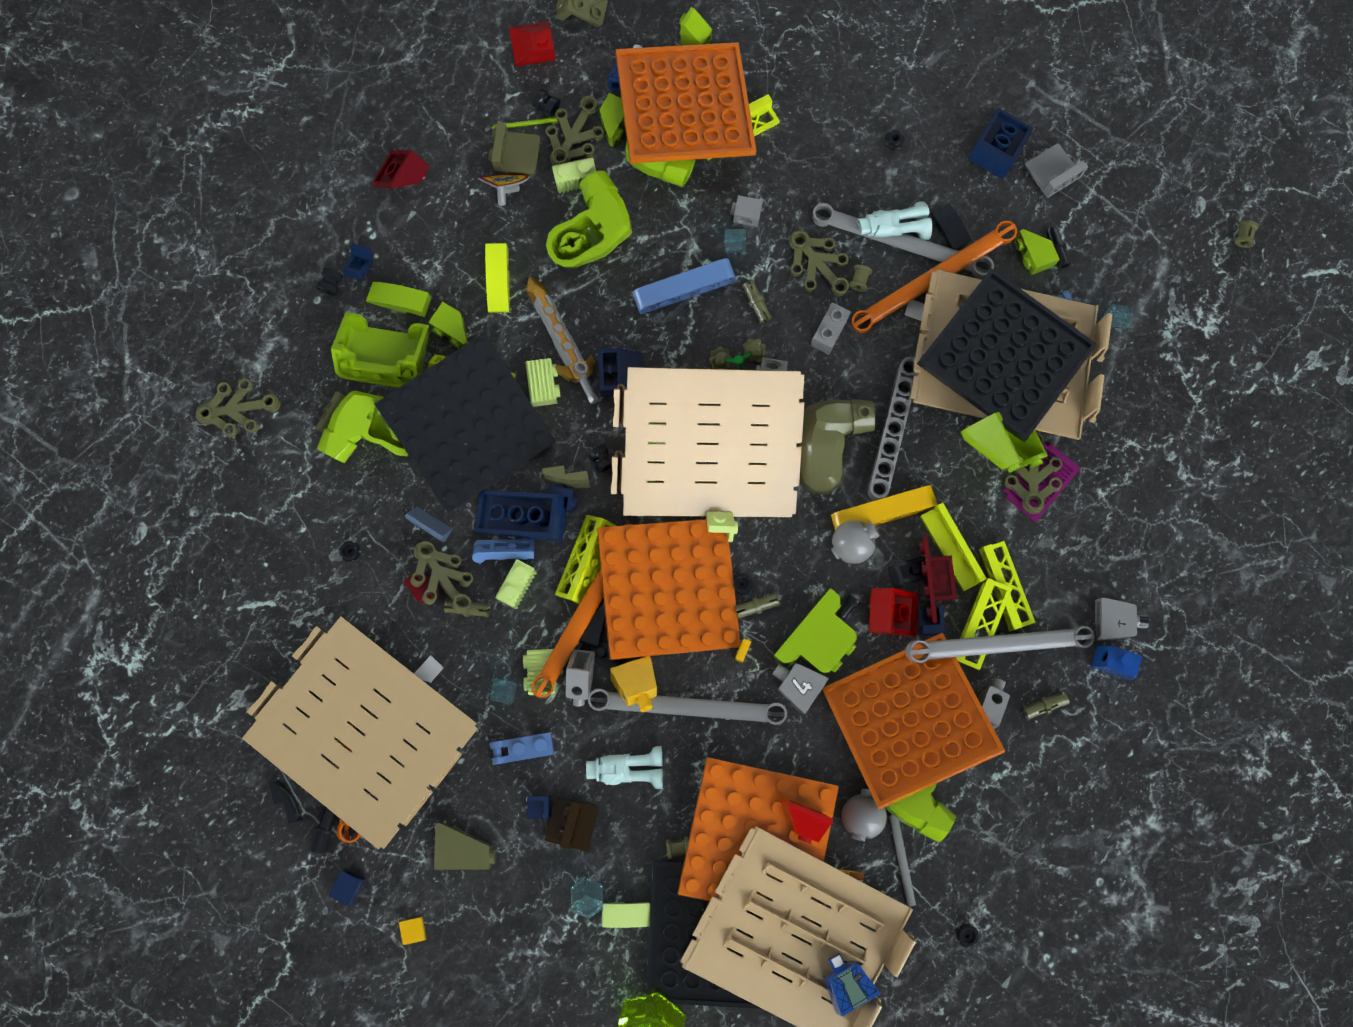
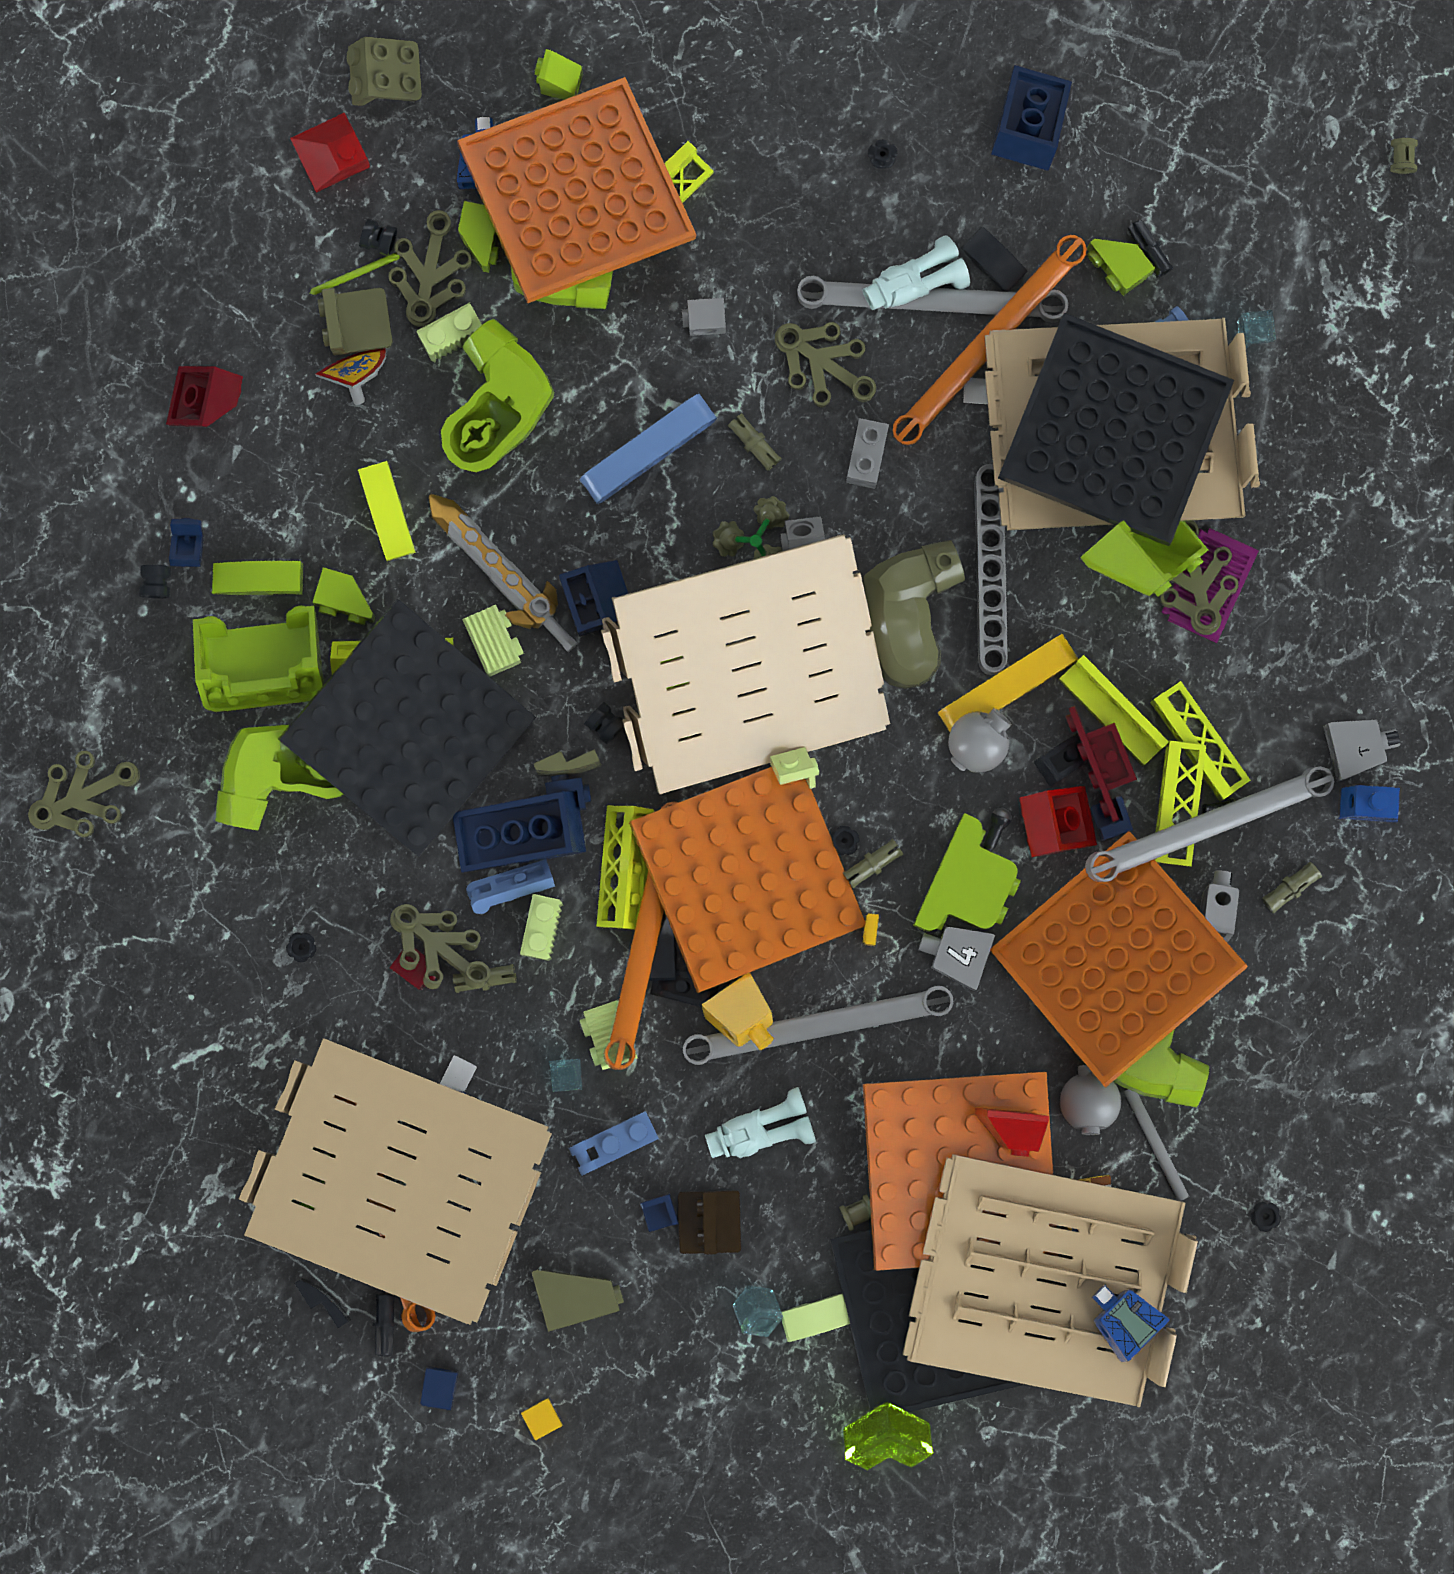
camera: 20 degrees left, 5 degrees up
(325, 419) = (214, 764): olive pin -> none
(429, 523) = (397, 878): sand blue slope -> none
(579, 676) = (664, 1026): light grey torso -> none
(735, 241) = (702, 367): clear light blue panel -> none
(860, 278) = (888, 369): olive bush -> none
(1054, 170) = (1115, 136): light grey bracket -> none

